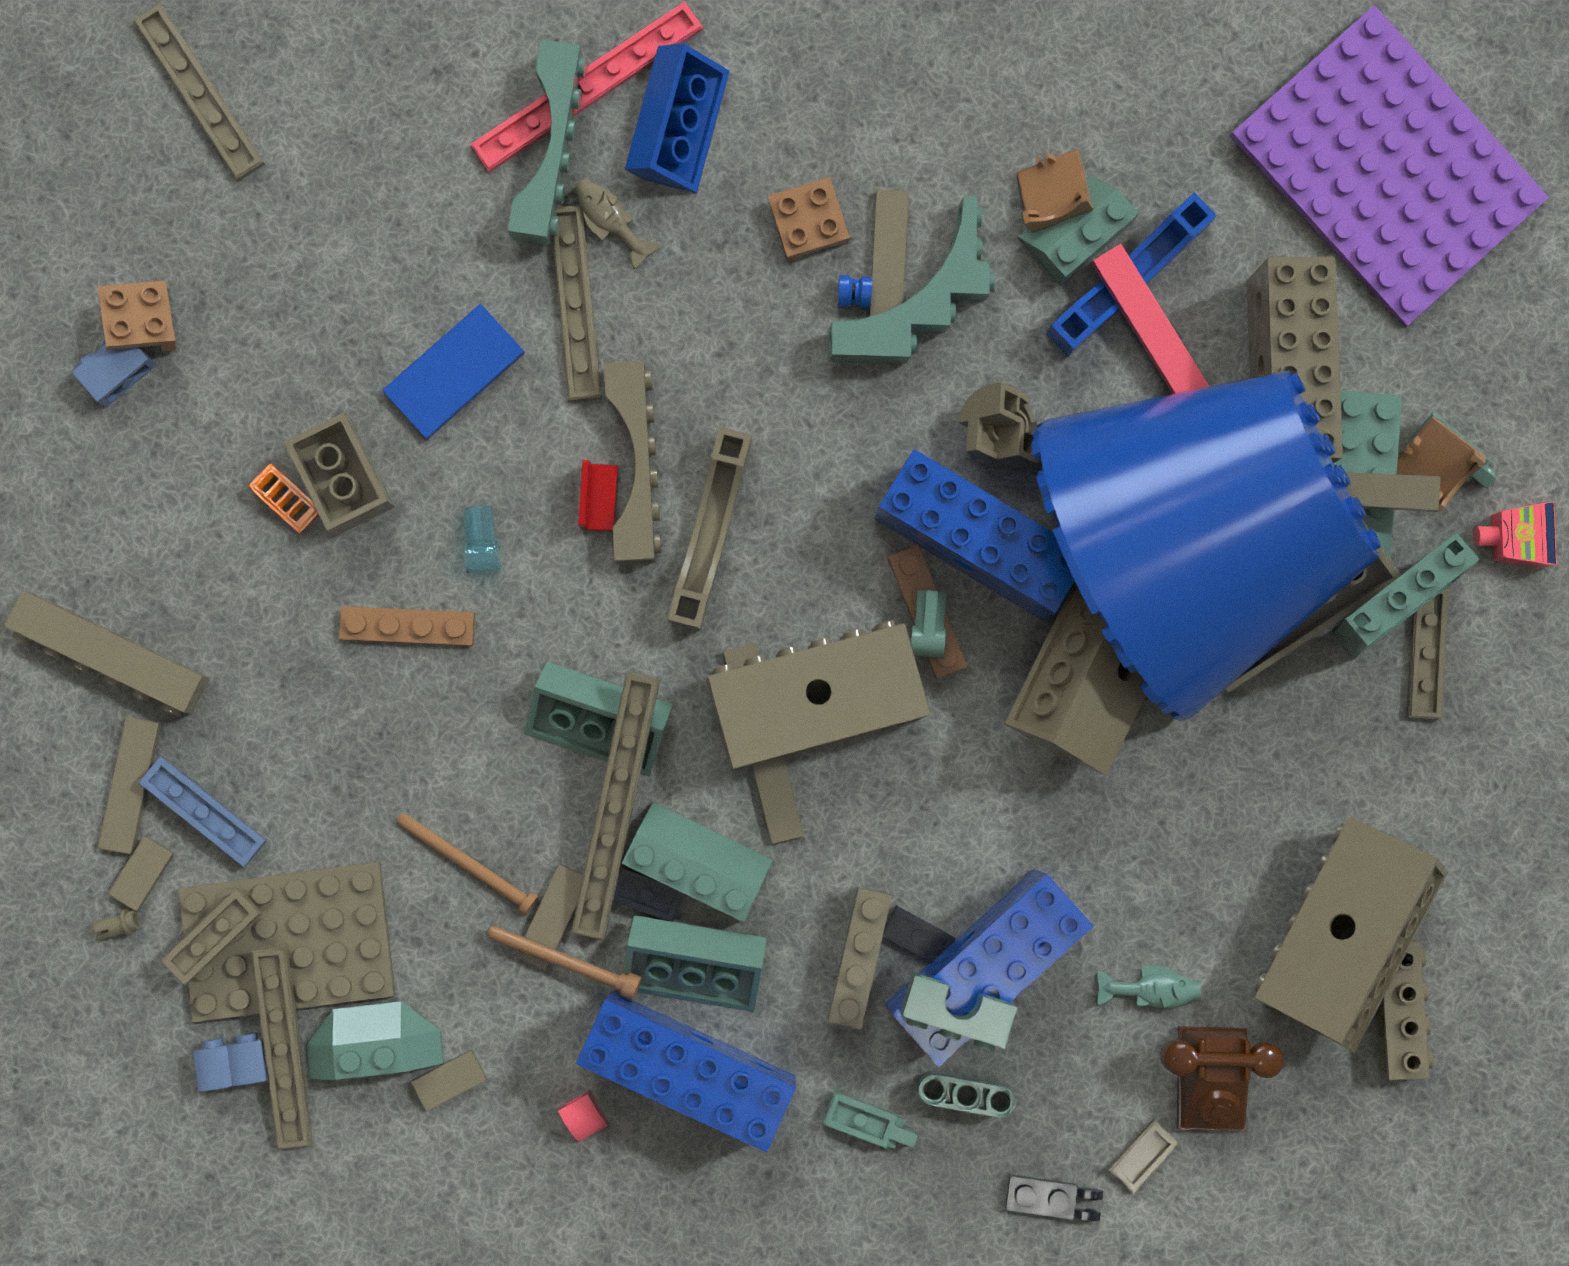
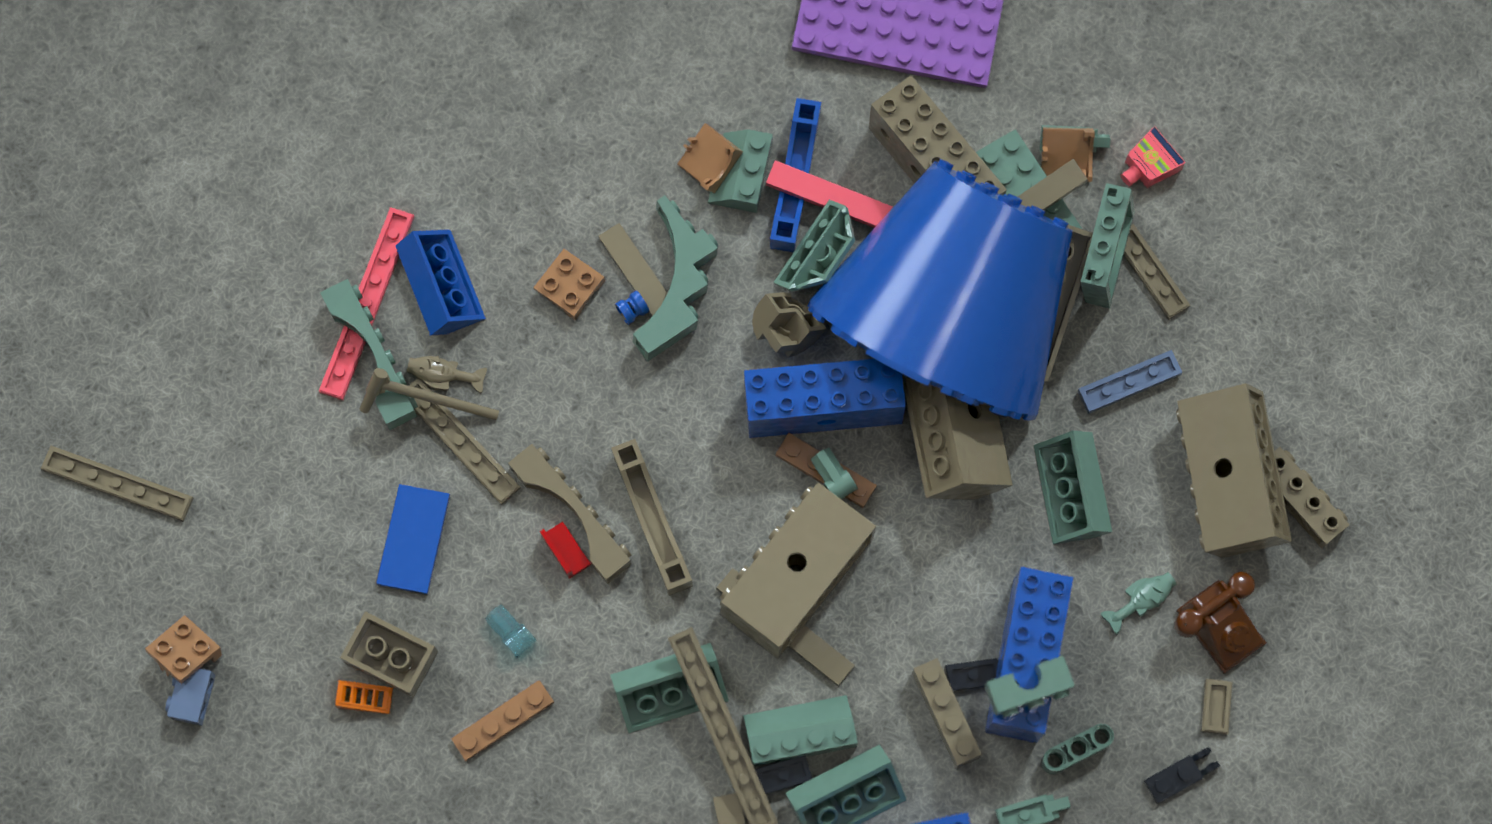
camera: 30 degrees left, 10 degrees down
(530, 182) = (381, 382): none -> dark tan bar
(1094, 375) = (819, 250): none -> sand green wedge
(1169, 820) = (1072, 487): none -> sand green slope
(1315, 753) = (1129, 381): none -> sand blue plate

